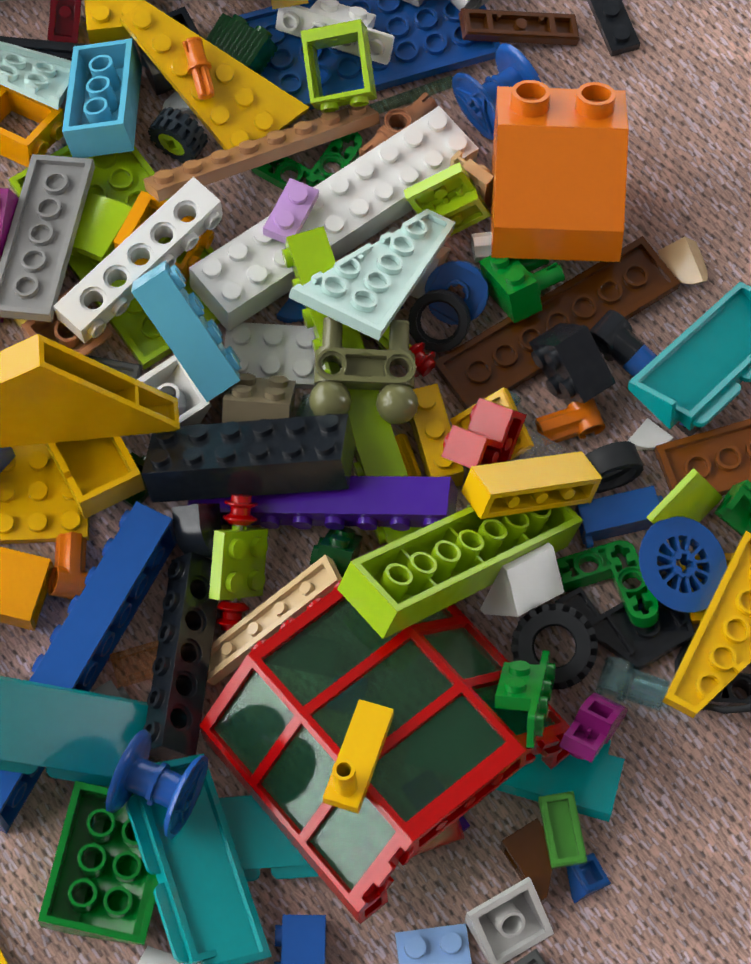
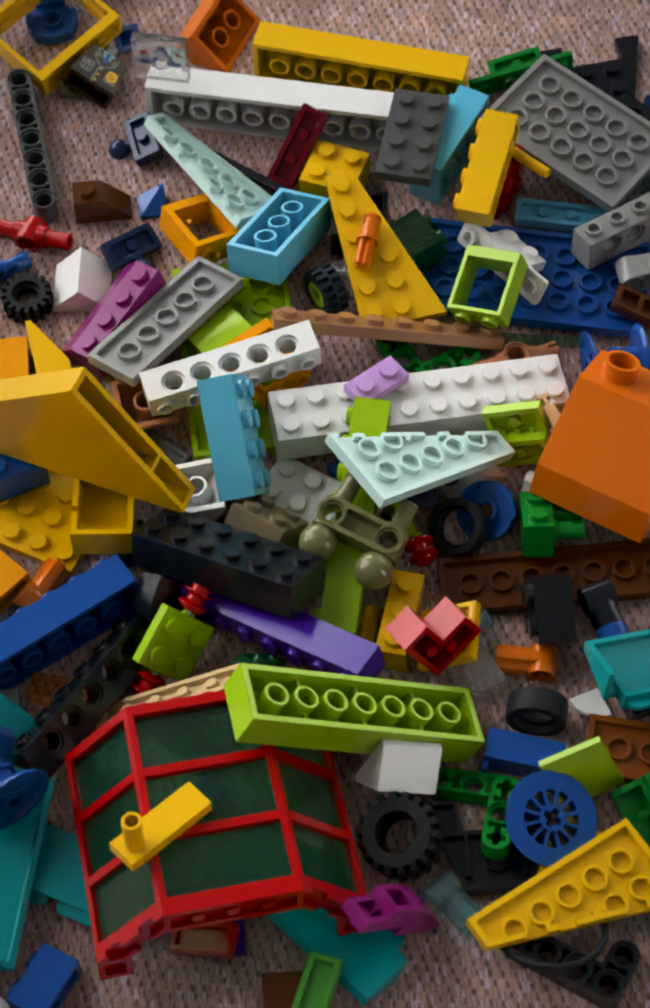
camera: 30 degrees right, 10 degrees down
(527, 689) = (341, 851): green bracket -> none
(531, 484) = (450, 687): yellow brick -> none

